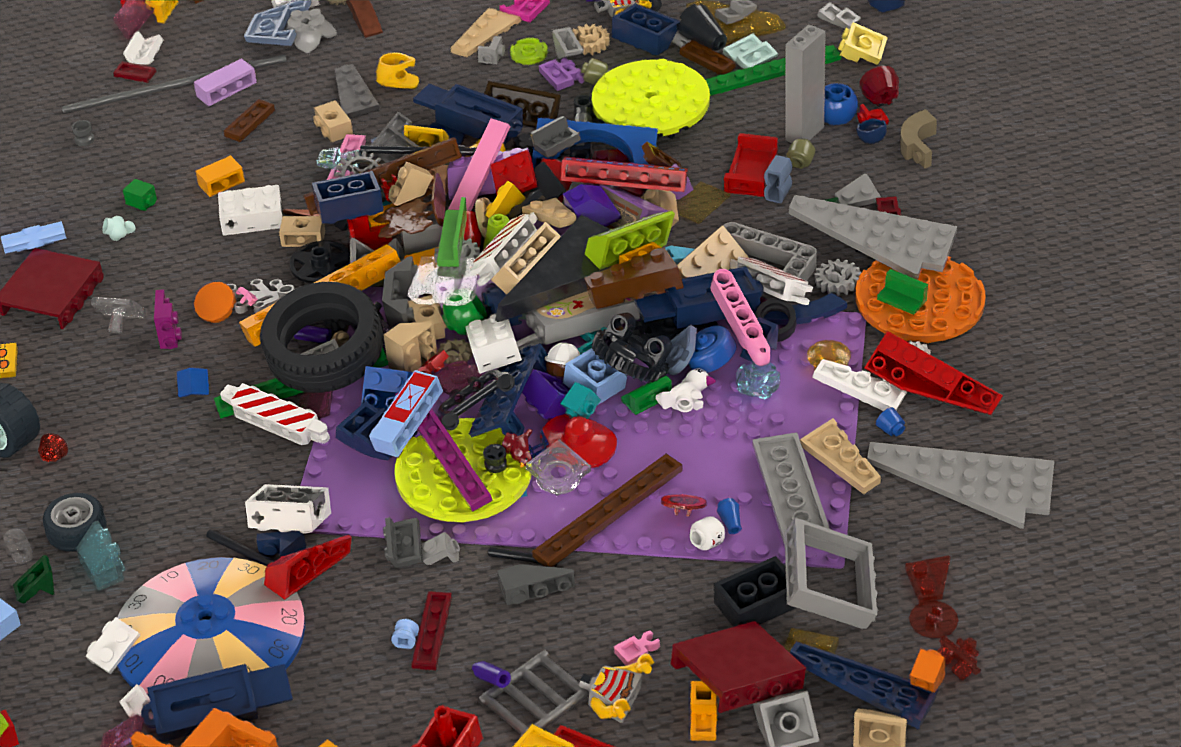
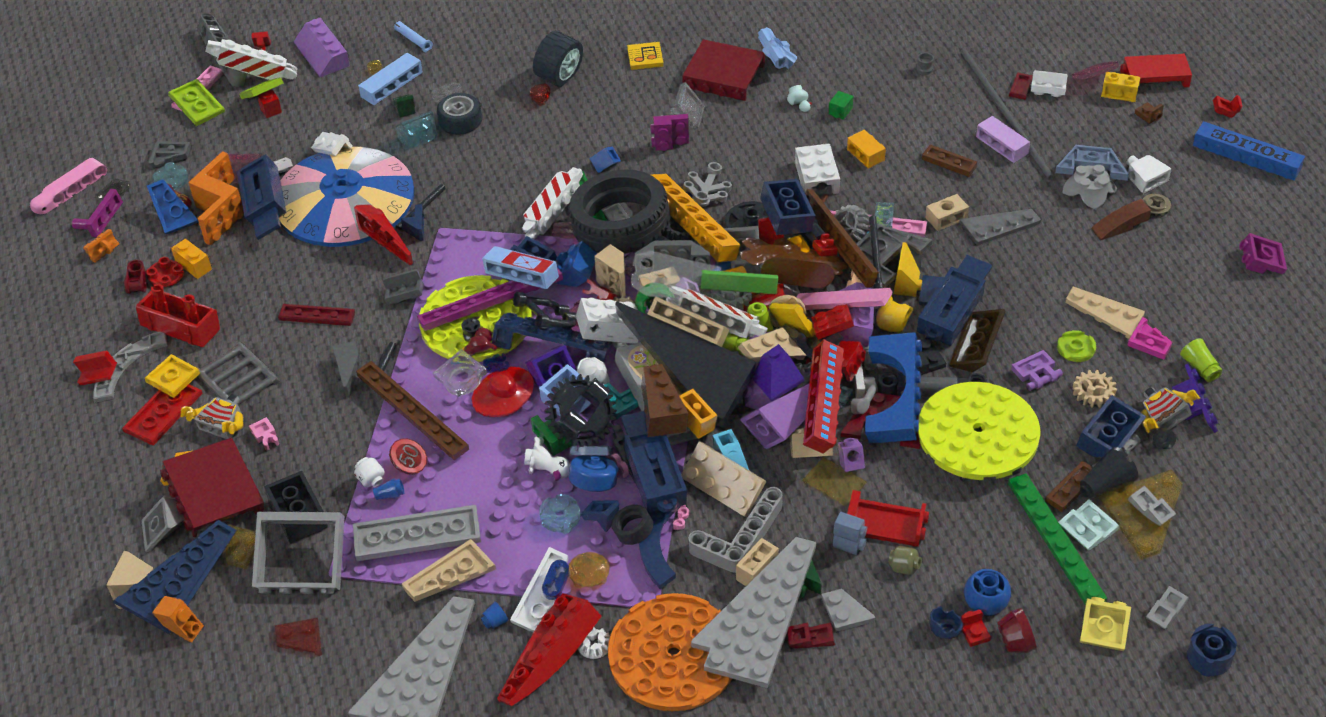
camera: 90 degrees right, 5 degrees up
(214, 302) = (698, 160): orange tile -> none
(246, 295) = (693, 176): bright pink piece -> none
(288, 508) = (437, 214): white piece -> none
(393, 74) = (1020, 247): yellow helmet -> none
(405, 634) = (310, 296): light blue wheel -> none
(411, 184) = (817, 249): tan slope -> none
(439, 548) = (395, 314): light grey bracket -> none
(491, 674) = (256, 345): dark purple cylinder -> none
(493, 52) = (1067, 317): light grey bracket -> none
(554, 137) = (882, 344): dark grey bracket -> none
(566, 43) = (1075, 365): light grey slope -> none
(580, 401) = (530, 381): teal brick -> none
(594, 70) = (1034, 392): olive head -> none
(608, 246) = (712, 389): lime slope -> none
(658, 157) = (869, 438): reddish brown plate -> none
(740, 308) = (611, 482): bright pink piece -> none
(775, 280) = (684, 517): white hinge -> none
(805, 84) = (955, 531): light grey brick -> none
(819, 236) = (755, 561): none -> tan brick
(837, 277) = (705, 582): light grey gear -> none
(853, 366) = (560, 581): none -> clear blue beam
(903, 292) = (663, 628): green panel -> none
(913, 131) = (937, 659): dark tan arch -> none
(933, 619) = (255, 638): clear red piece -> none
(966, 663) = (200, 648): clear red hips -> none

